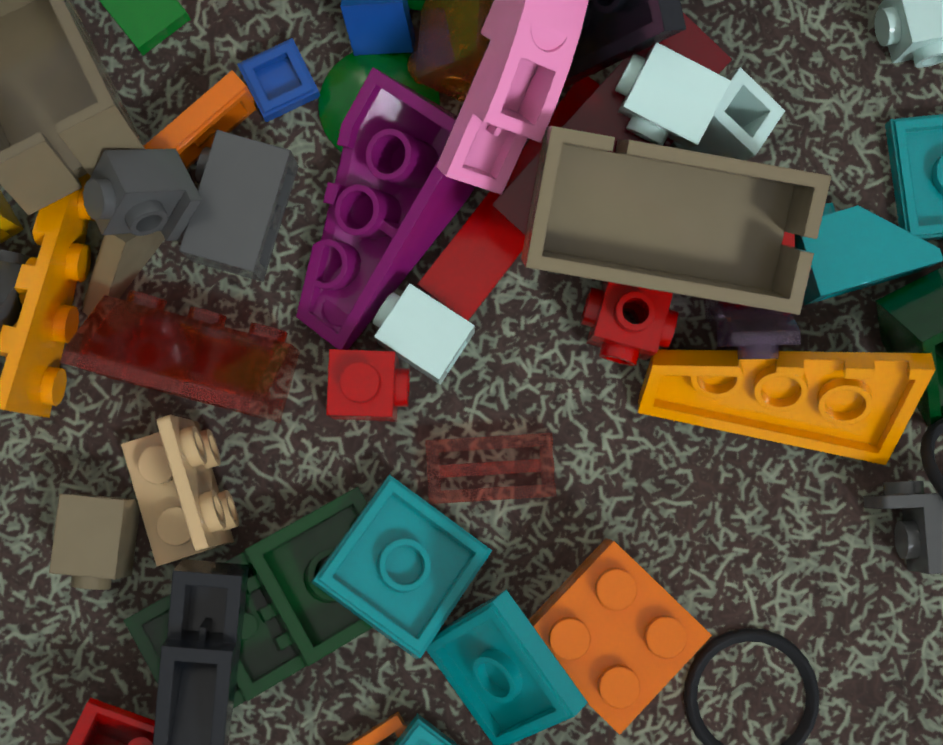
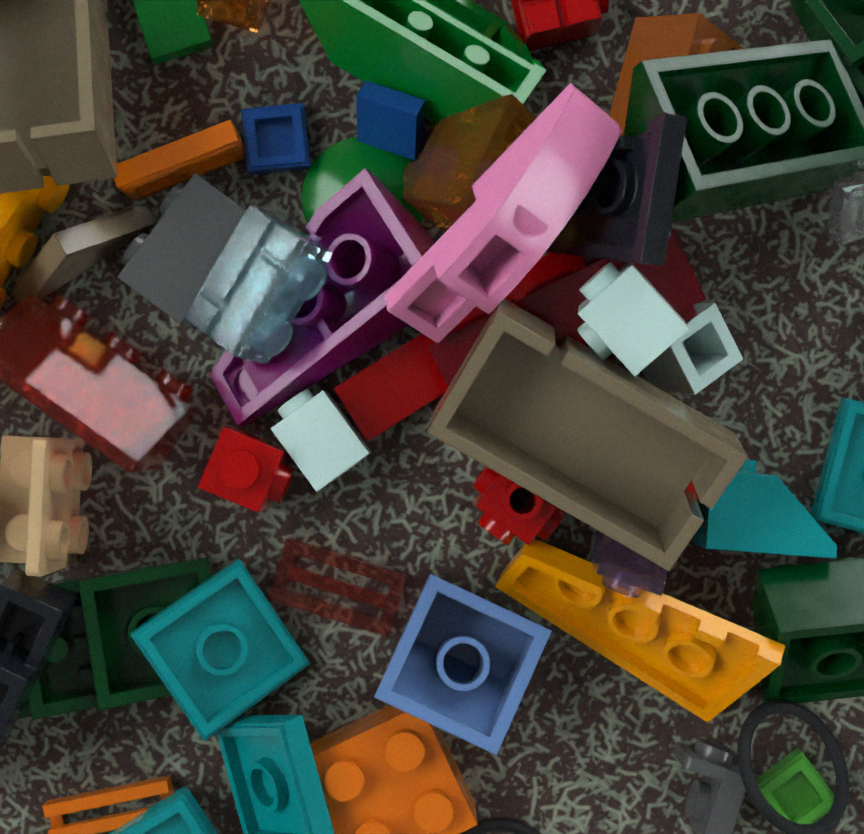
camera: 20 degrees right, 5 degrees up
(141, 193) = (97, 213): dark grey brick -> none
(315, 207) = (259, 286): none -> clear light blue brick
(638, 484) = (462, 664): none -> medium blue slope

